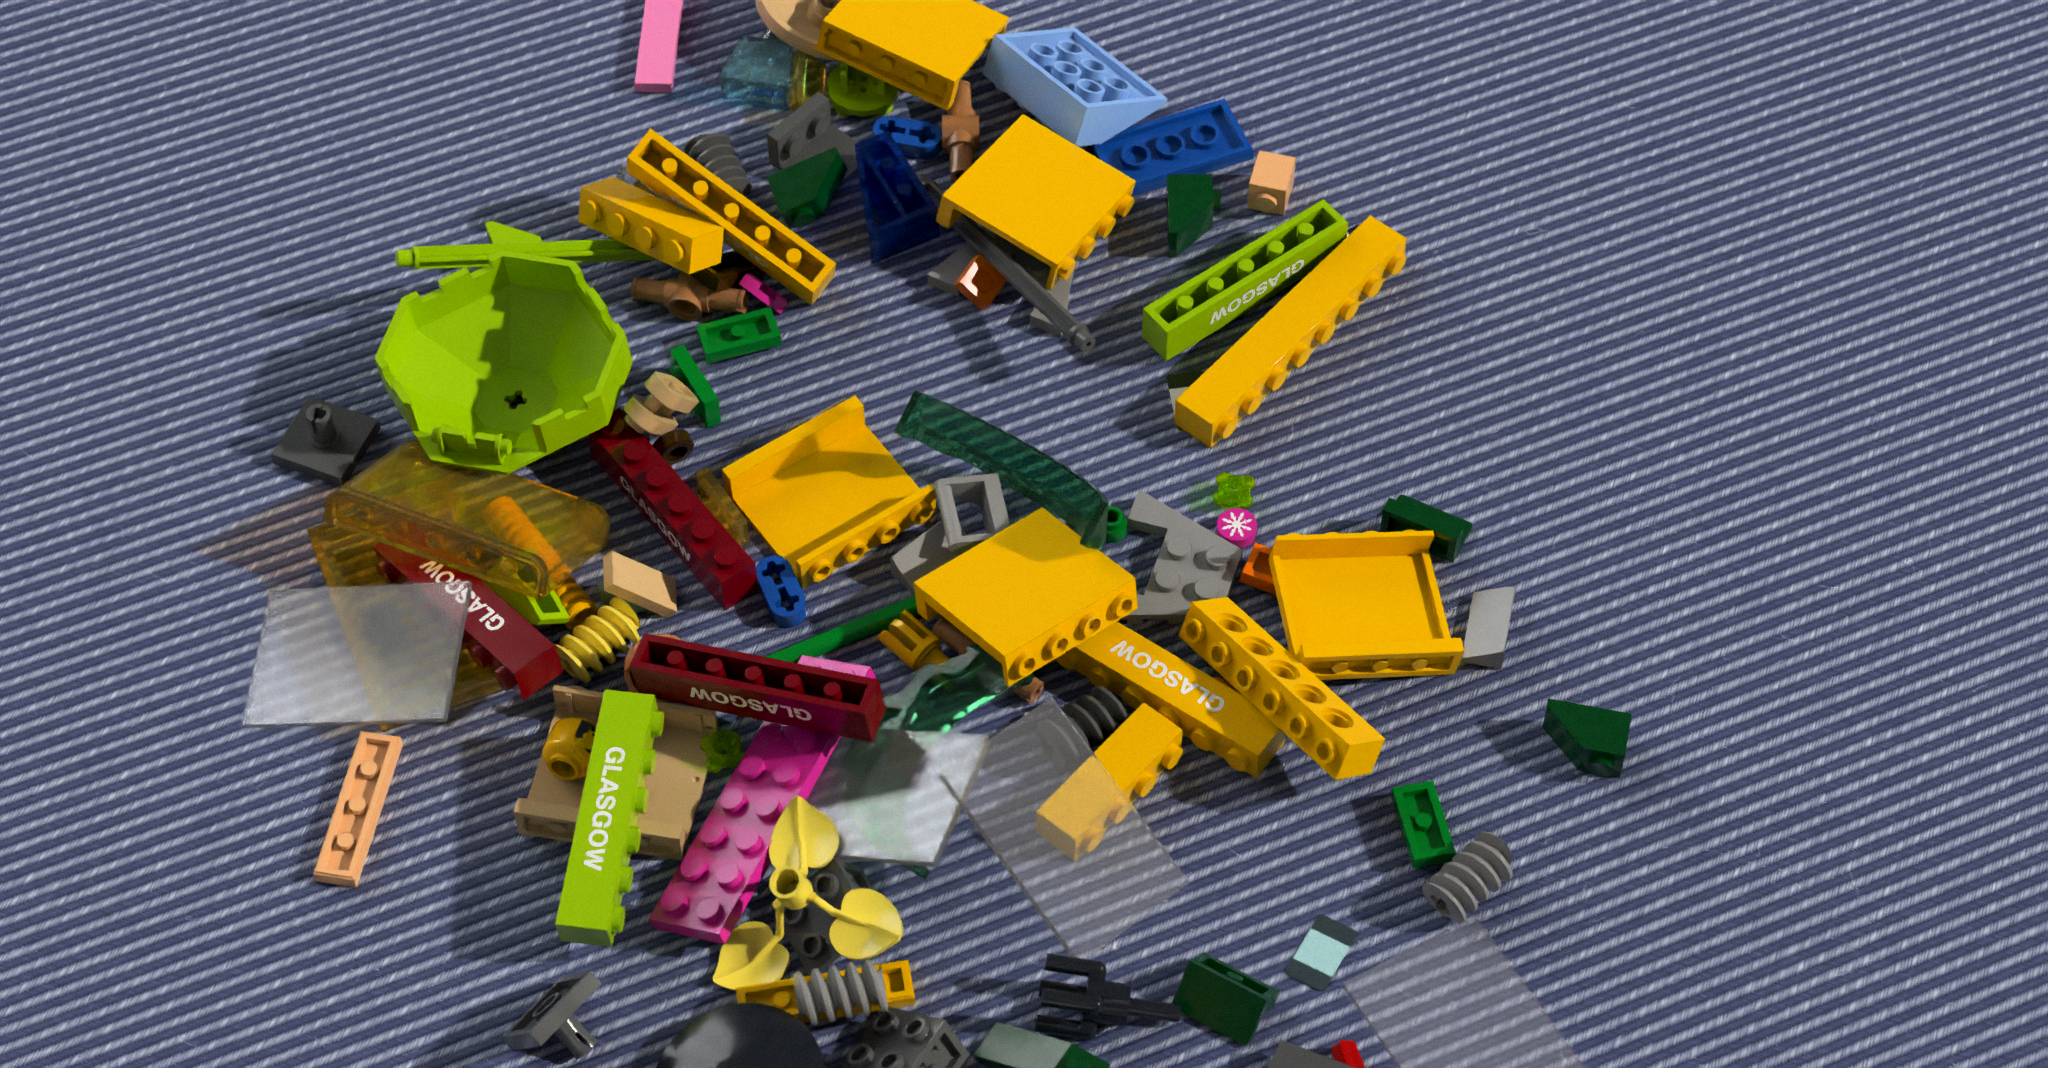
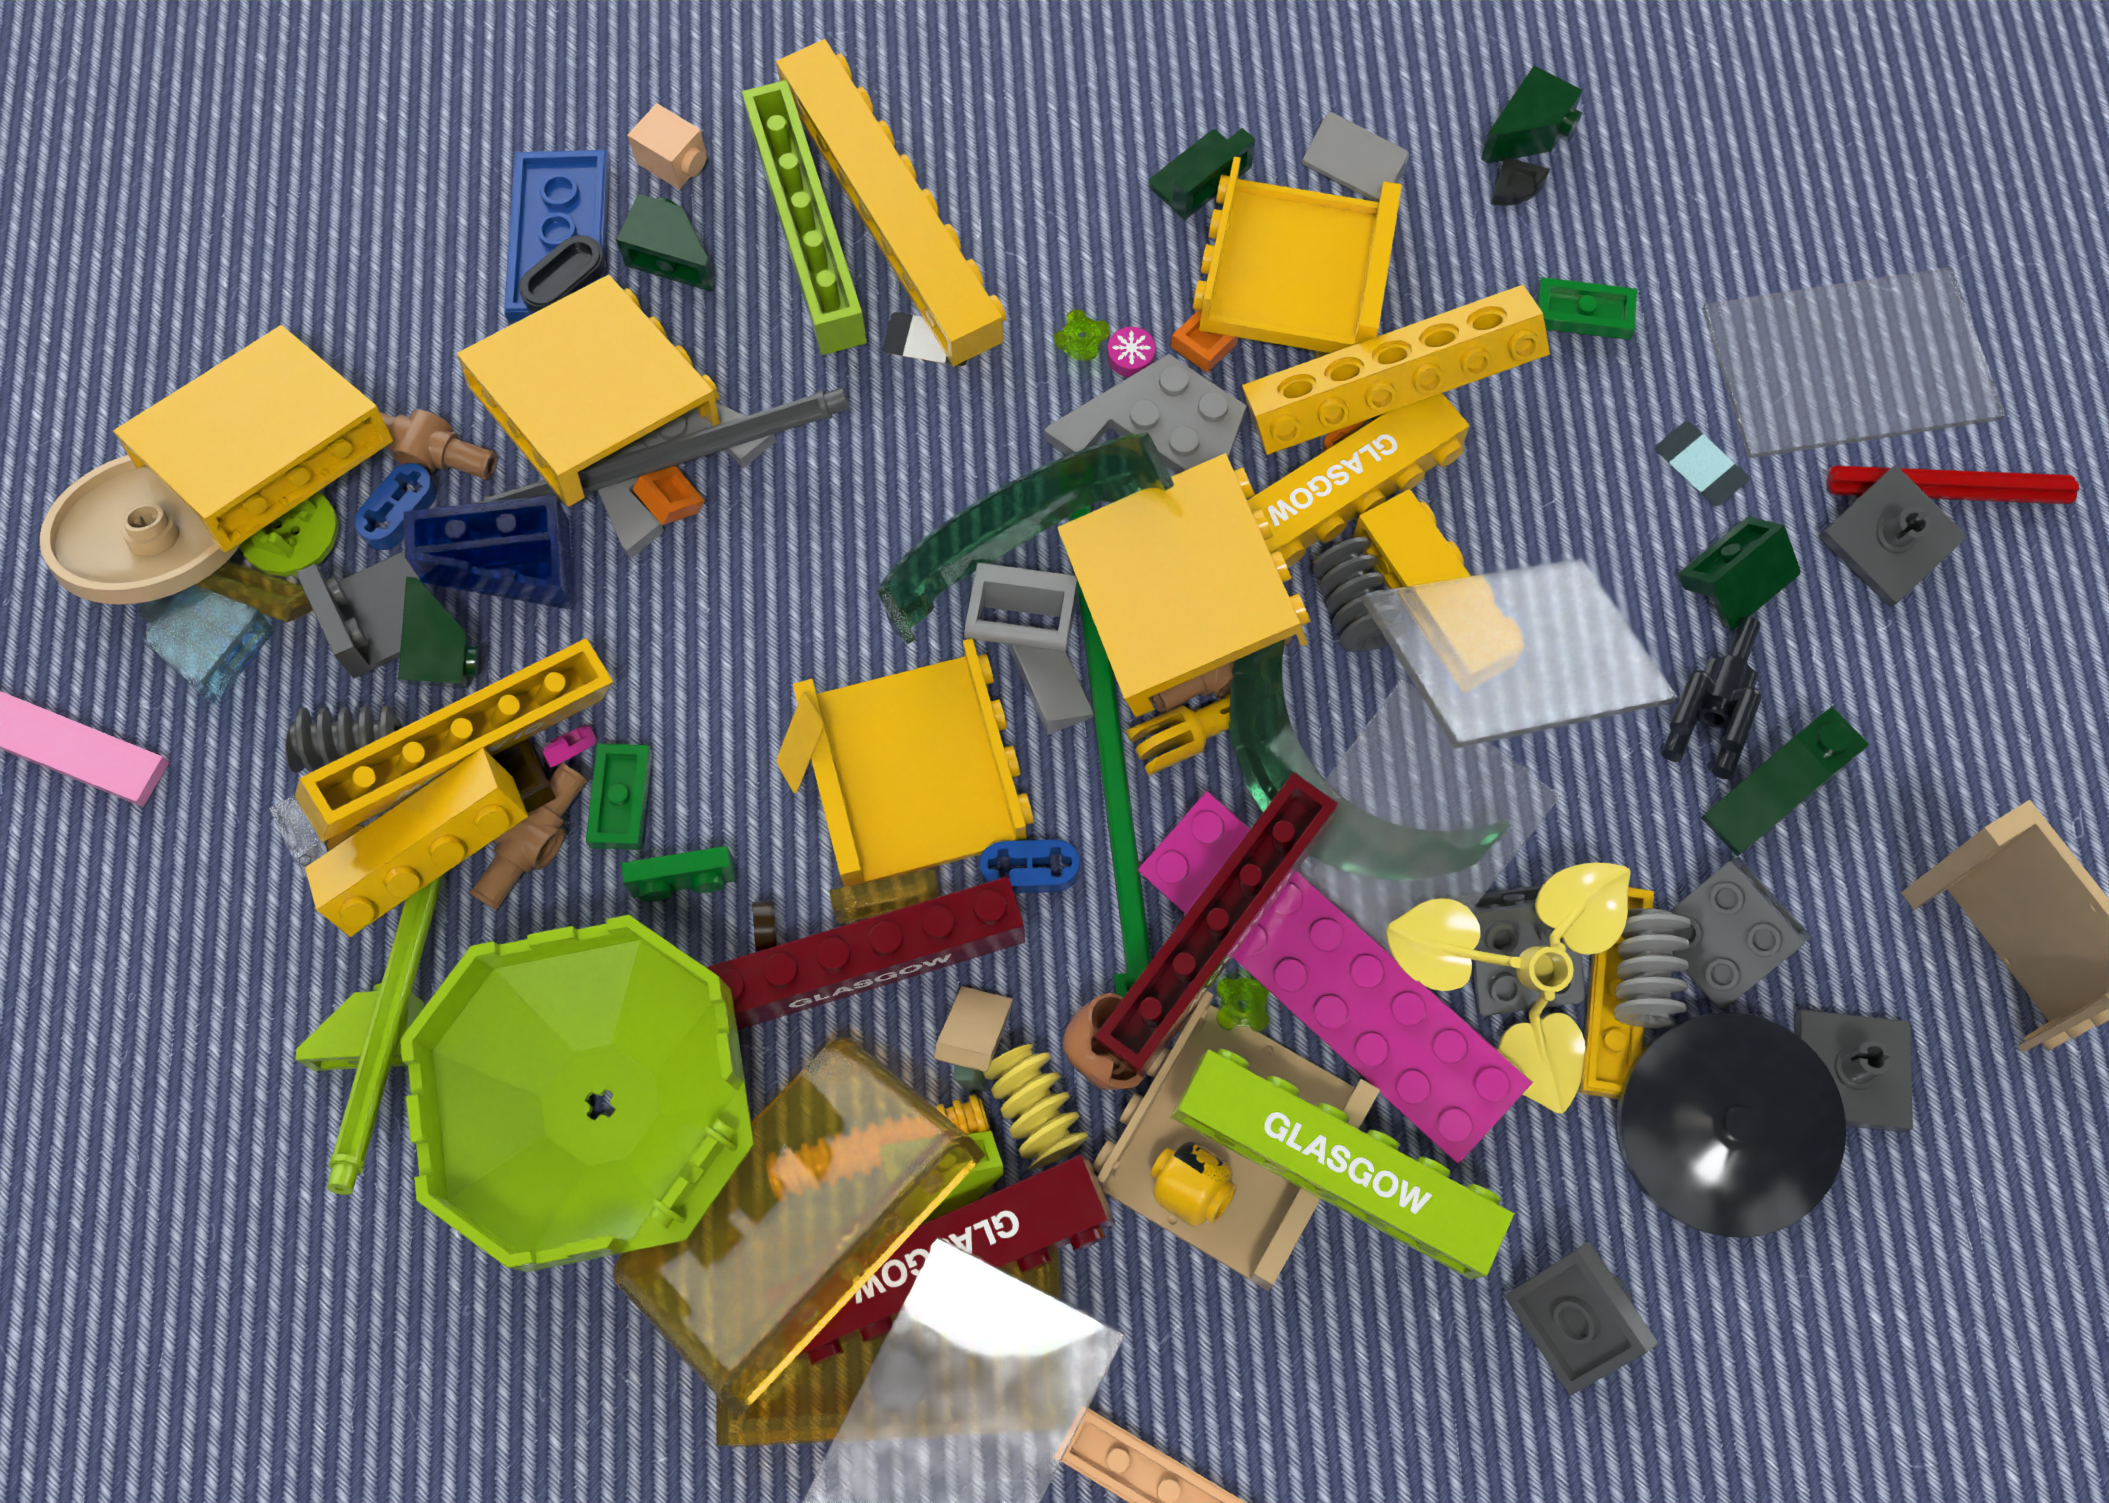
camera: 70 degrees left, 15 degrees up
(326, 441) = (550, 1382): dark grey tile -> none
(656, 411) = (721, 928): tan brick -> none
(1070, 84) = (416, 298): light blue slope -> none
(1132, 158) = (562, 272): none -> black tile
(1469, 877) = (1671, 287): light grey piece -> none
(1528, 749) = (1518, 182): none -> pearl dark grey tile

